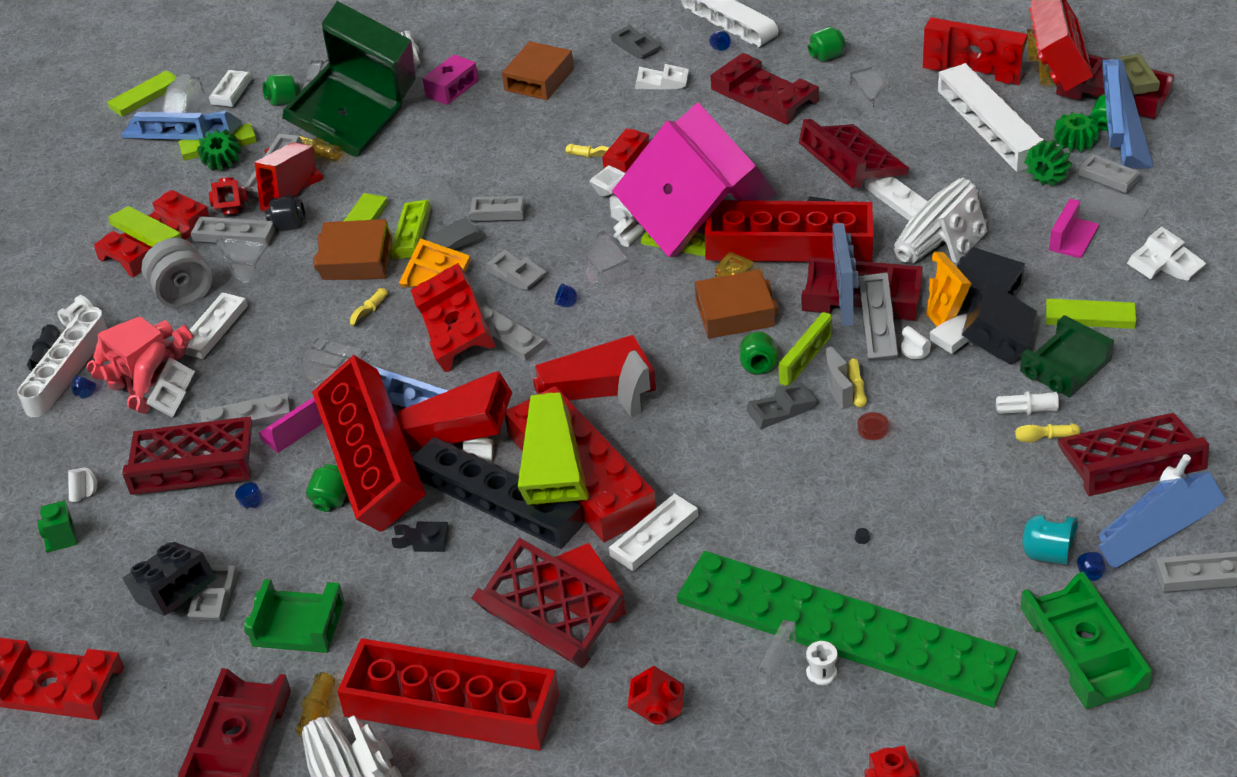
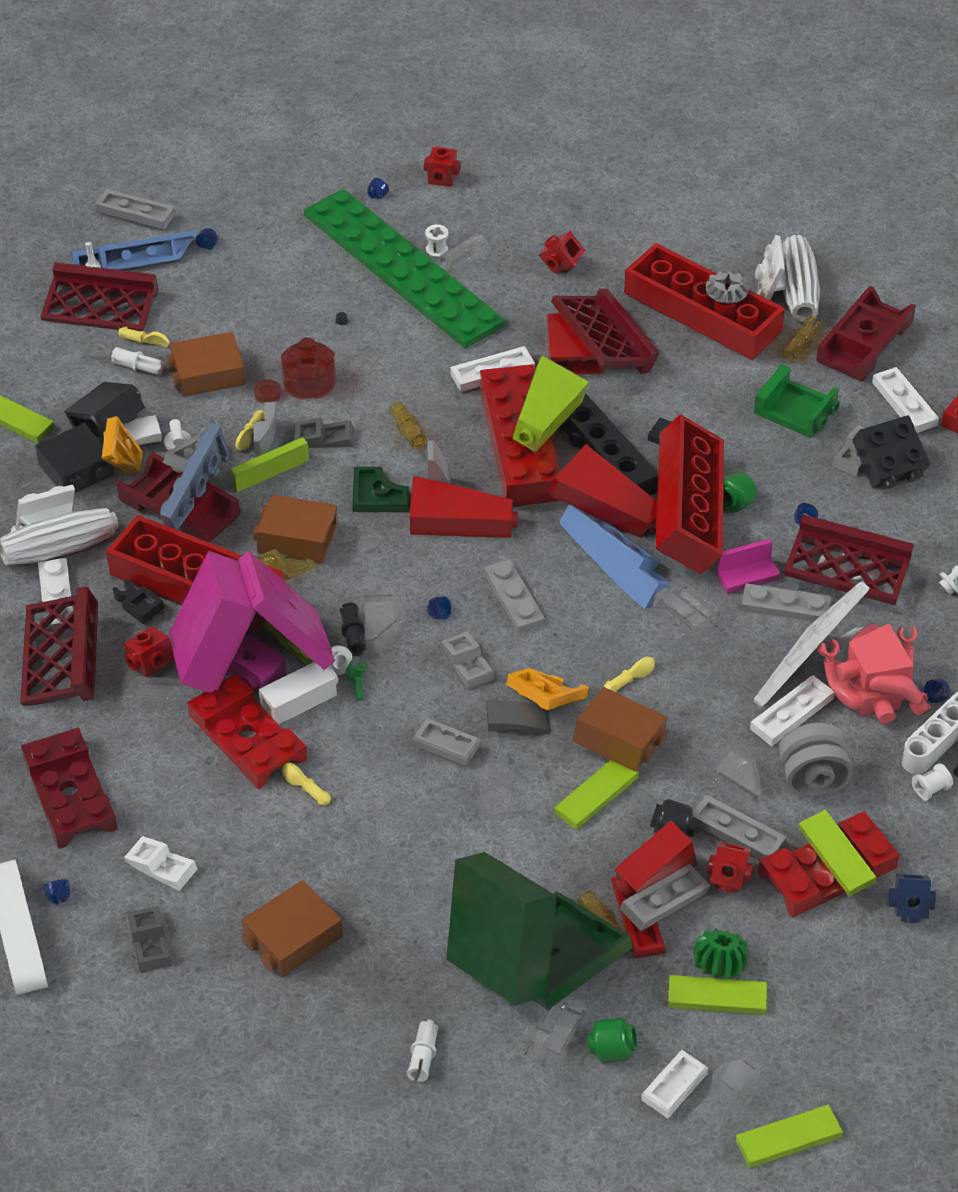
camera: 160 degrees left, 5 degrees up
(75, 215) = (908, 886): none -> dark blue brick
(169, 670) = (905, 399): none -> white plate
(179, 125) = (756, 1024): medium blue wedge -> none
(201, 353) = (809, 642): none -> white tile
(403, 689) = (736, 292): none -> light grey gear
(410, 228) = (545, 757): lime tile -> none
(444, 300) = (563, 589): red piece -> none
(450, 79) = (401, 961): dark pink brick -> none
(601, 224) = (355, 674): none -> green hand
(606, 180) = (309, 712): white slope -> none
(636, 261) = (352, 628): none -> black pin
(690, 372) = (376, 493): none -> dark green tile
(703, 439) = (407, 425): none -> clear yellow pin
(758, 353) = (311, 475): green head -> none
(779, 170) = (148, 652): none -> red brick
(842, 445) = (308, 369): none -> clear red brick
(952, 419) = (206, 364): none -> dark orange brick
(959, 719) = (377, 189): none -> clear blue hinge
(1048, 540) = (227, 259): teal helmet -> none
(1068, 357) = (71, 382): dark green panel -> none
(1098, 666) = (256, 212): green piece -> none

